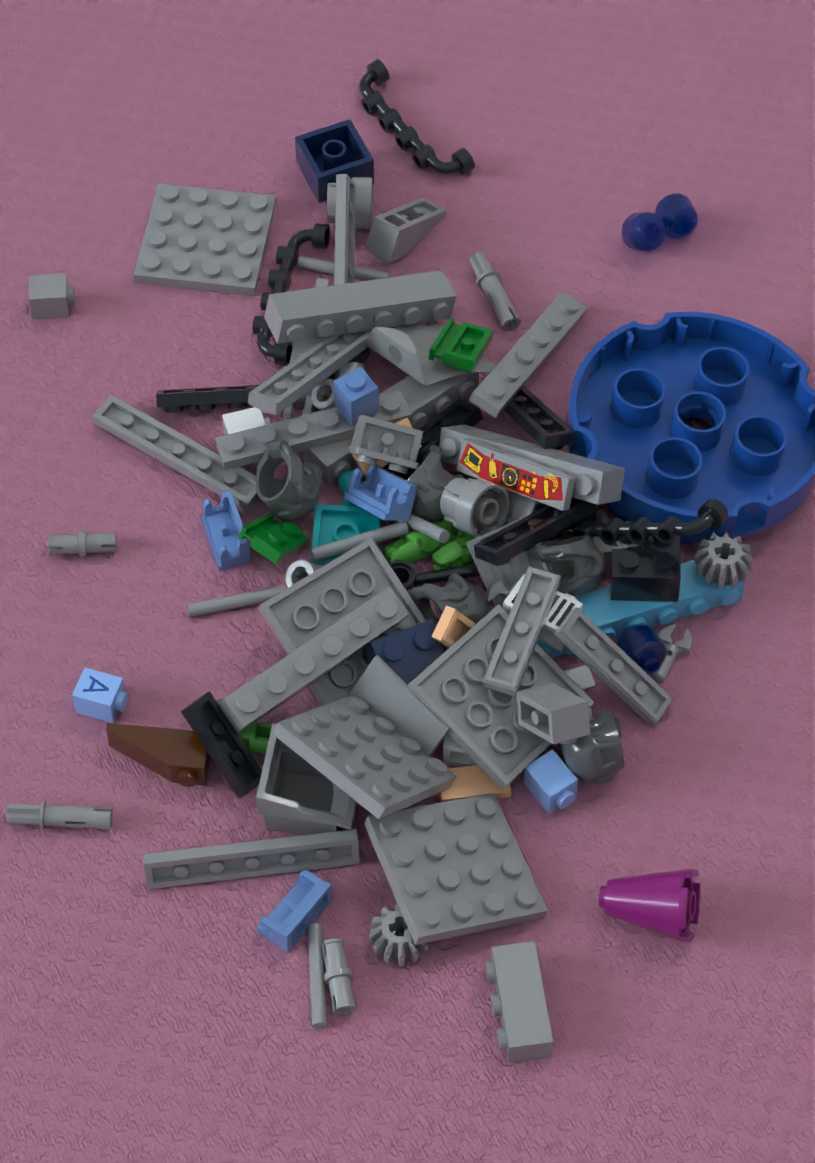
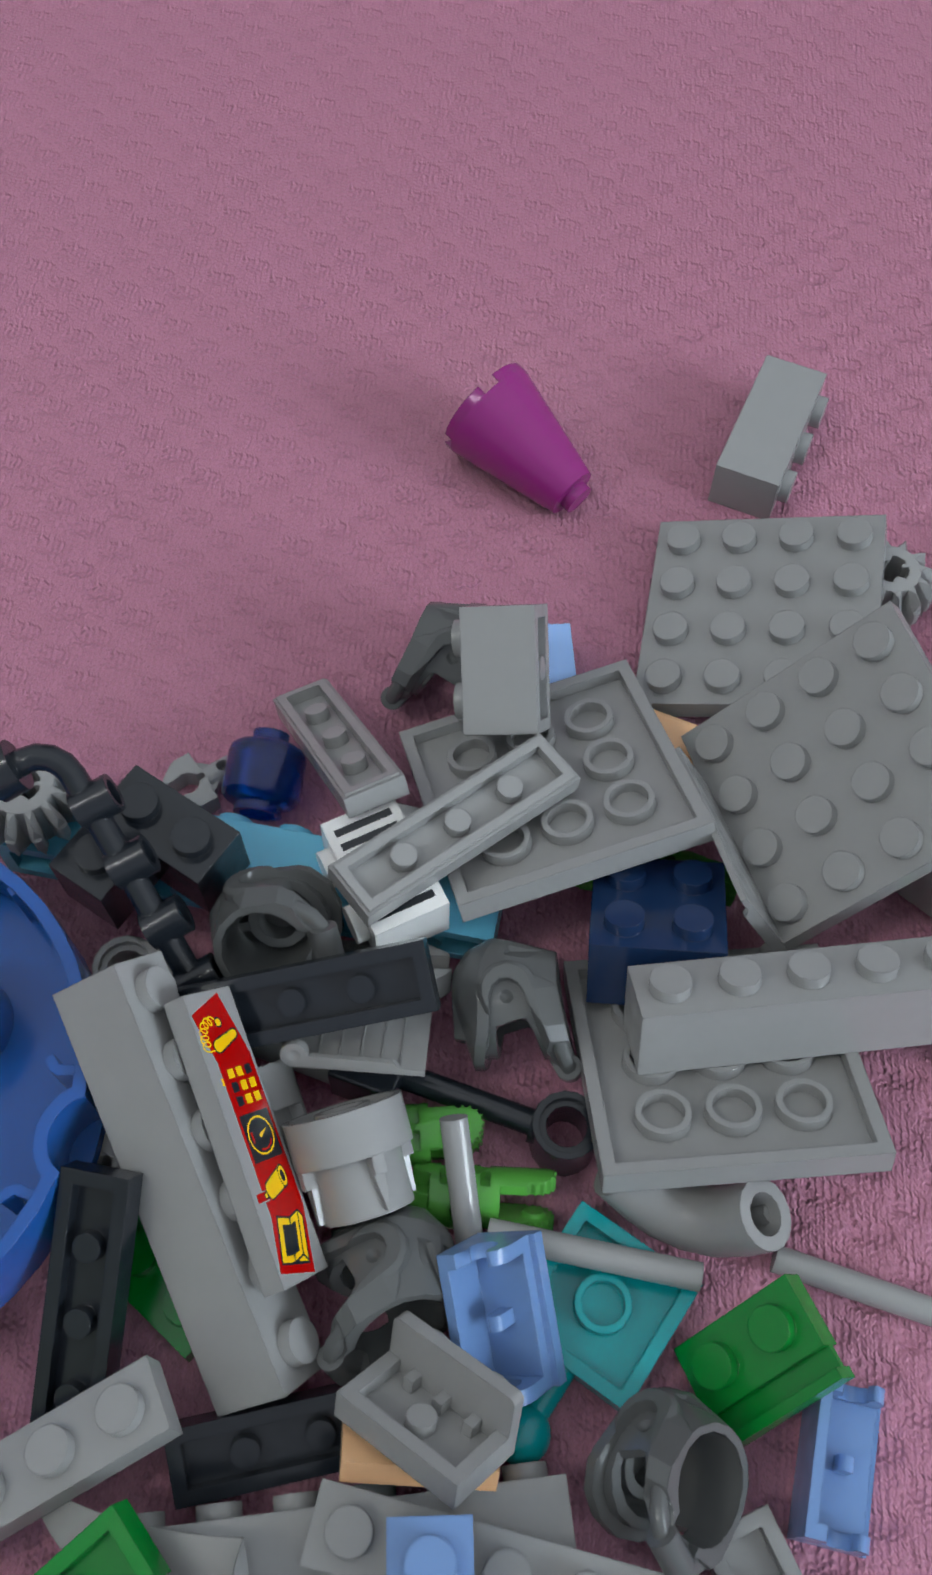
camera: 150 degrees left, 5 degrees up
(451, 627) = (555, 903): light nougat tile -> none

